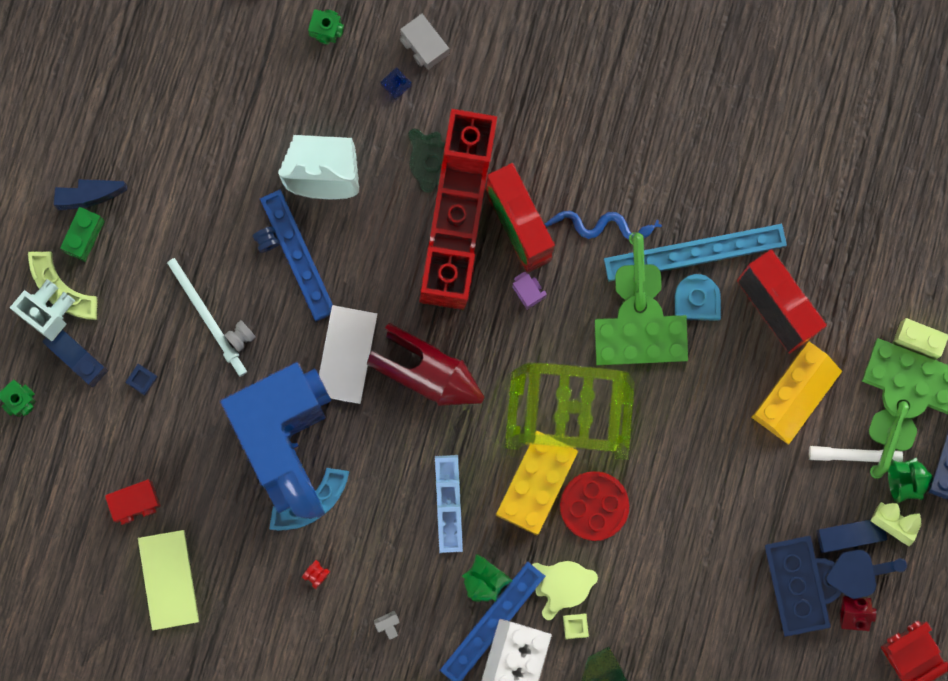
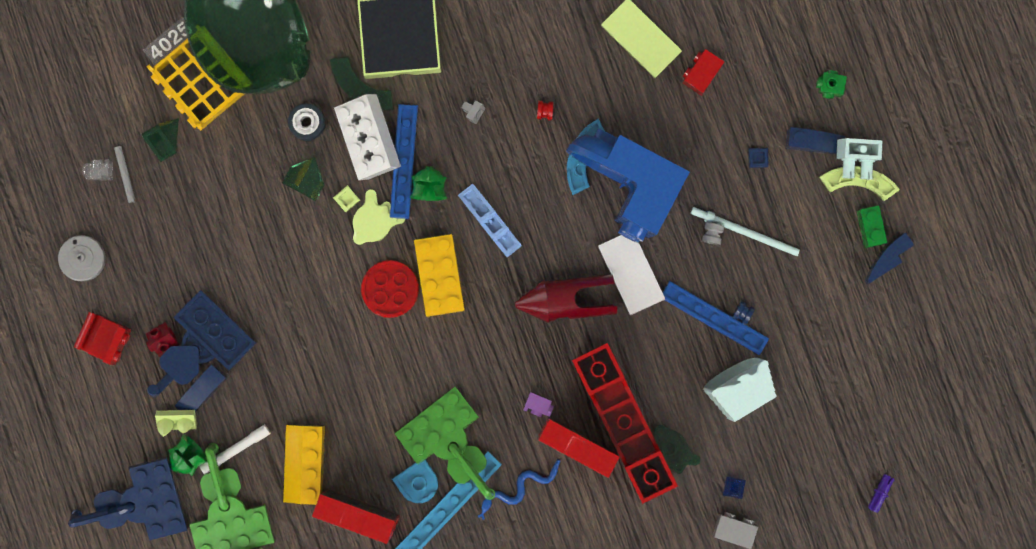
camera: 150 degrees right, 5 degrees up
(325, 26) = (818, 495): green brick -> none
(621, 395) = (402, 338): clear neon green windscreen -> none

